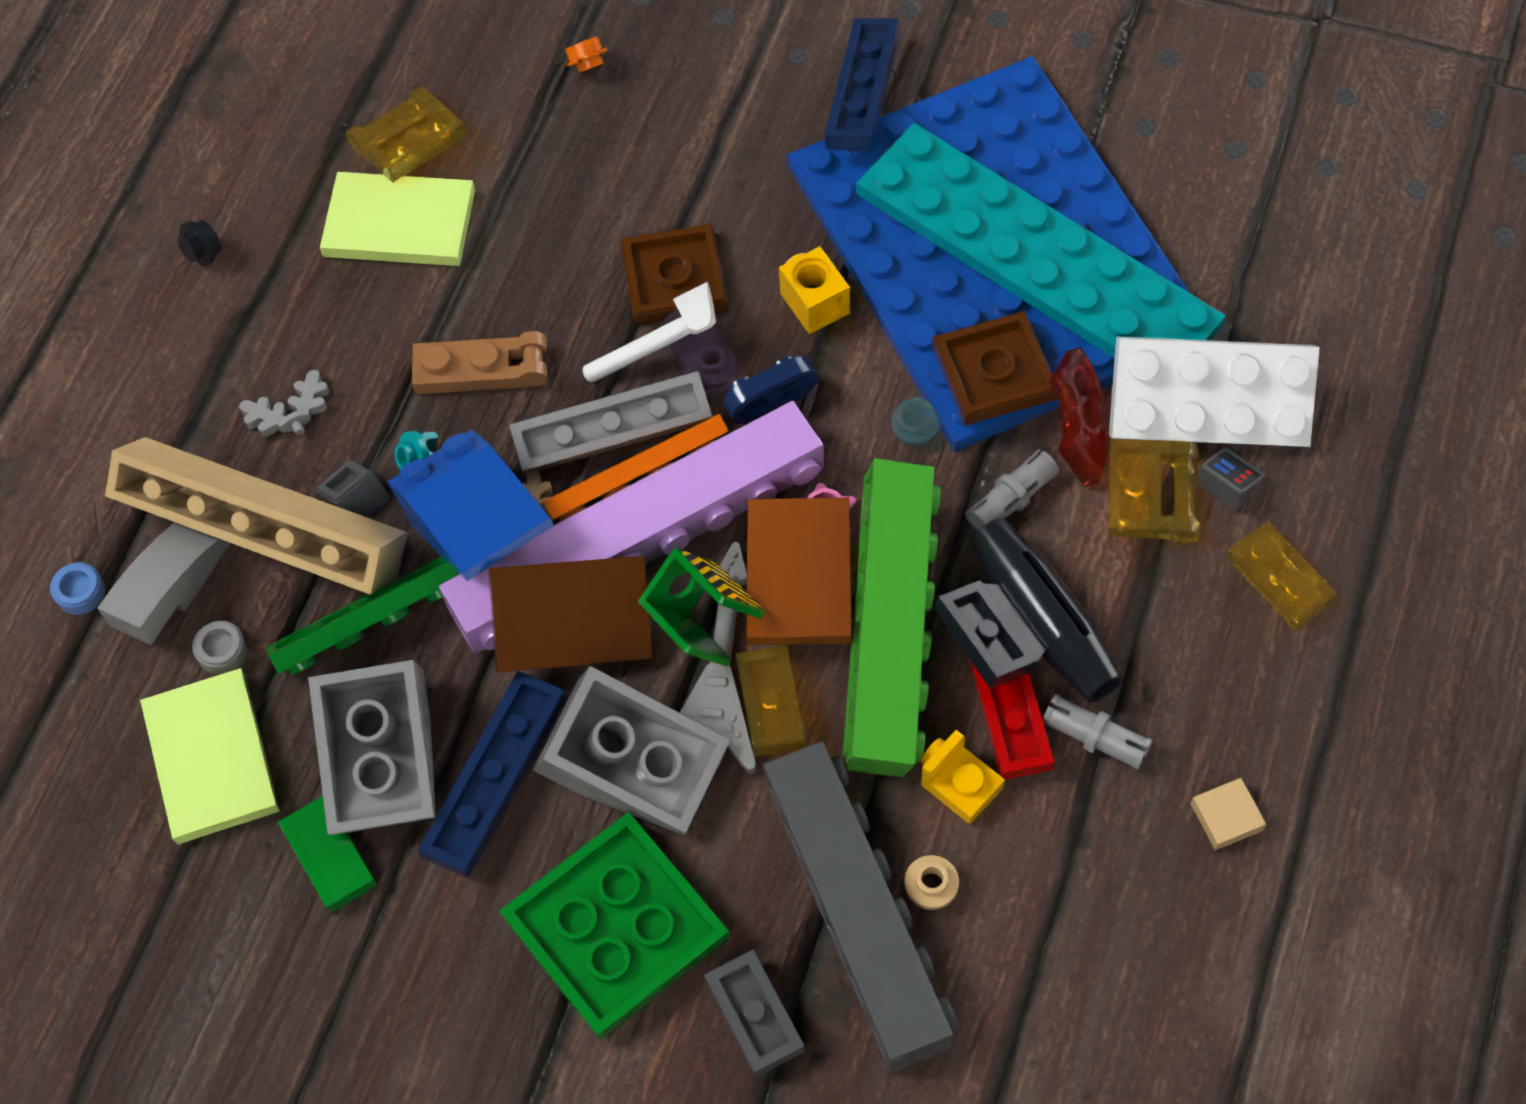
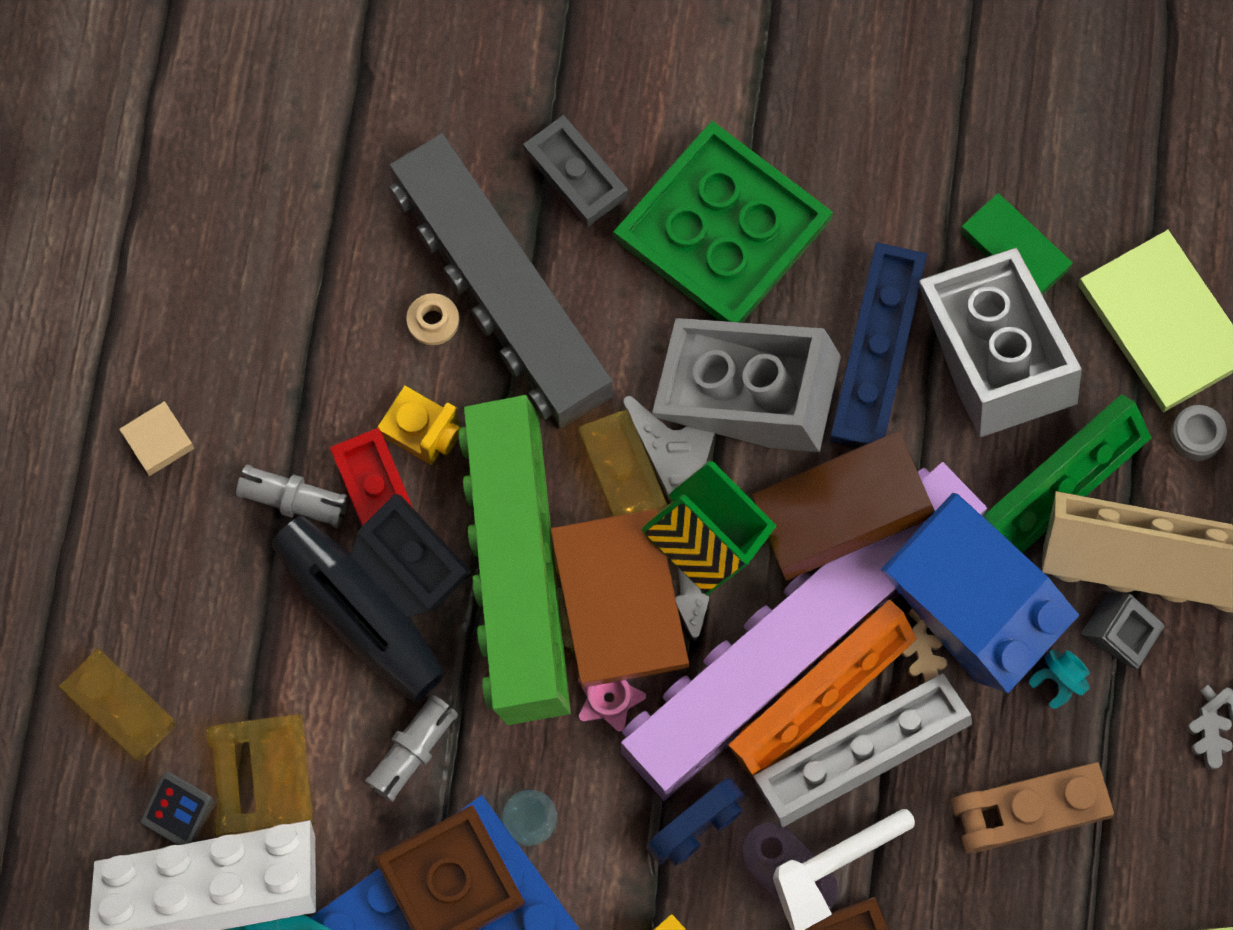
camera: 165 degrees right, 10 degrees up
(1079, 395) = (350, 855): clear red tile -> none

